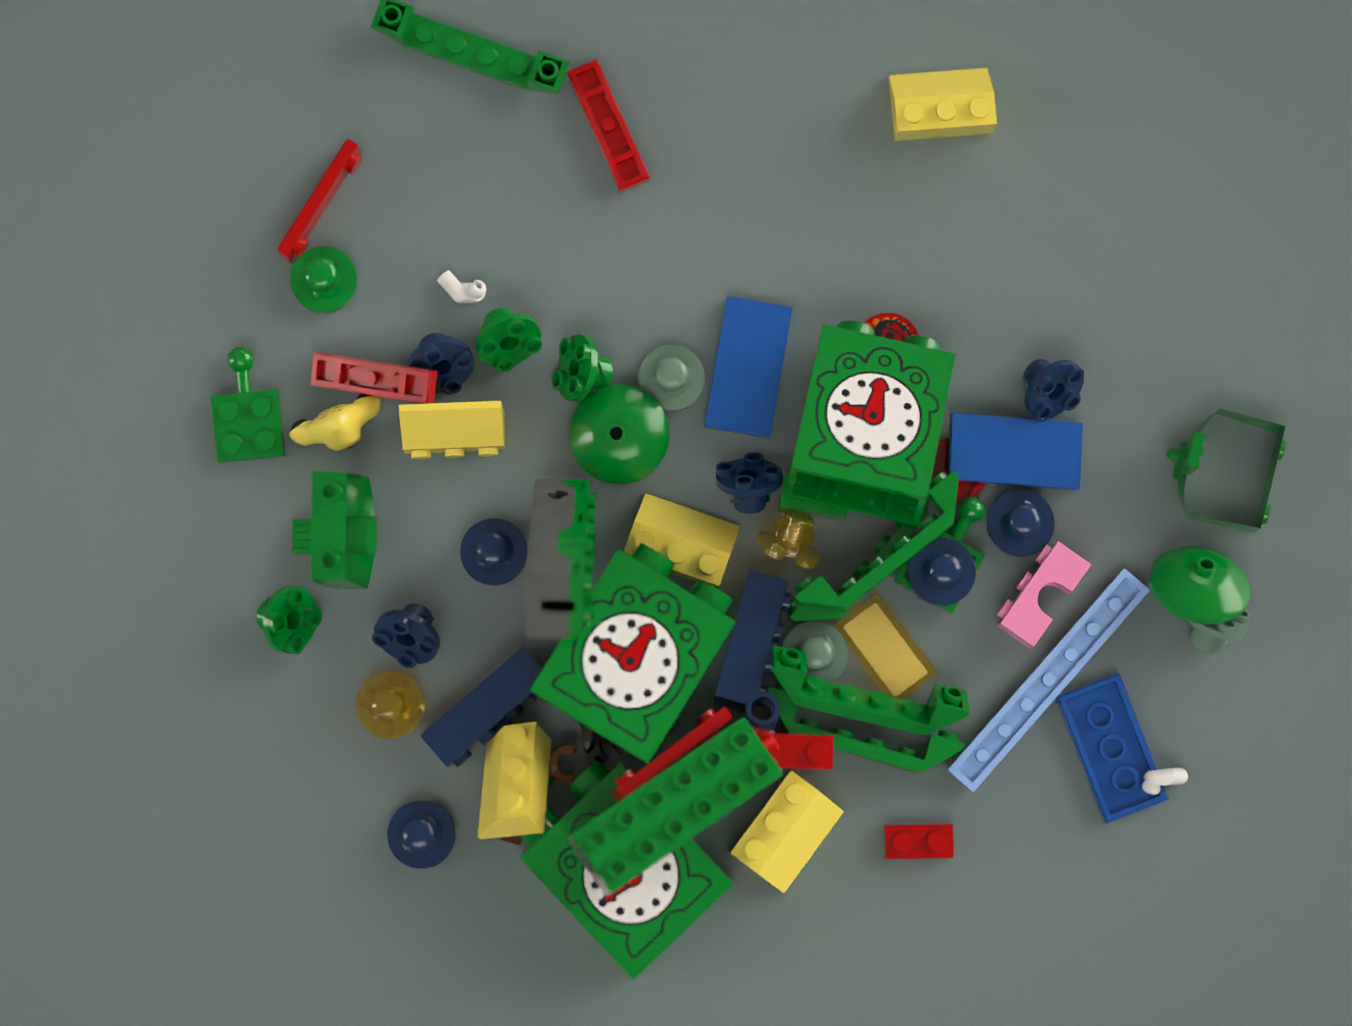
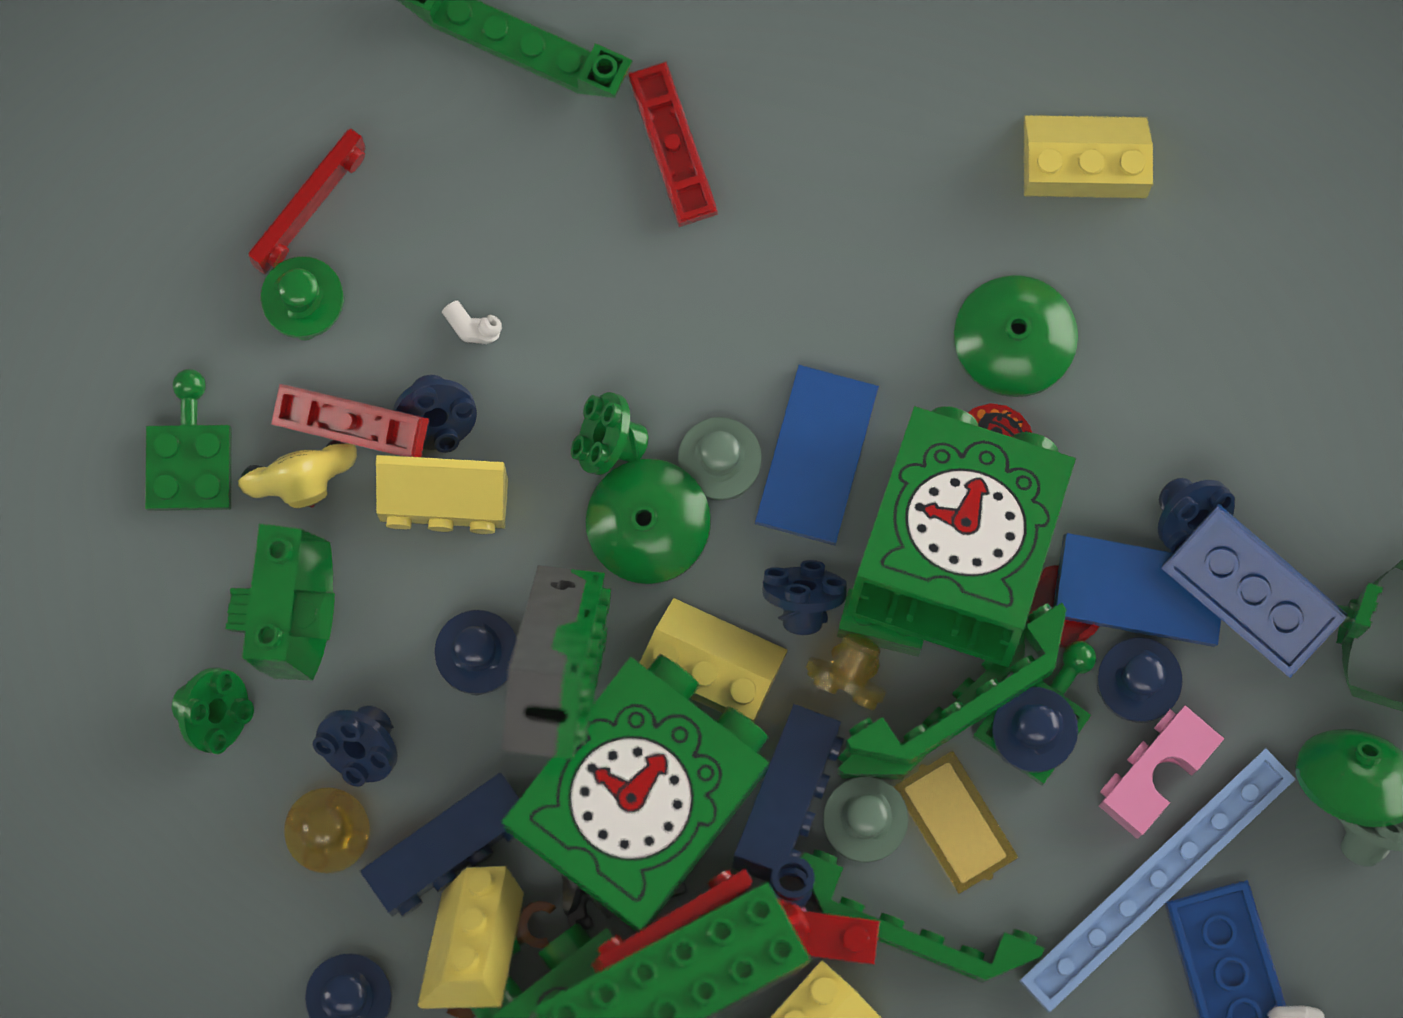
camera: 10 degrees right, 5 degrees down
(507, 339) = (521, 391): green plate -> none
(894, 277) = (1014, 362): none -> green dish
(943, 706) = (1022, 900): green slope -> none
(1105, 444) = (1254, 591): none -> blue tile

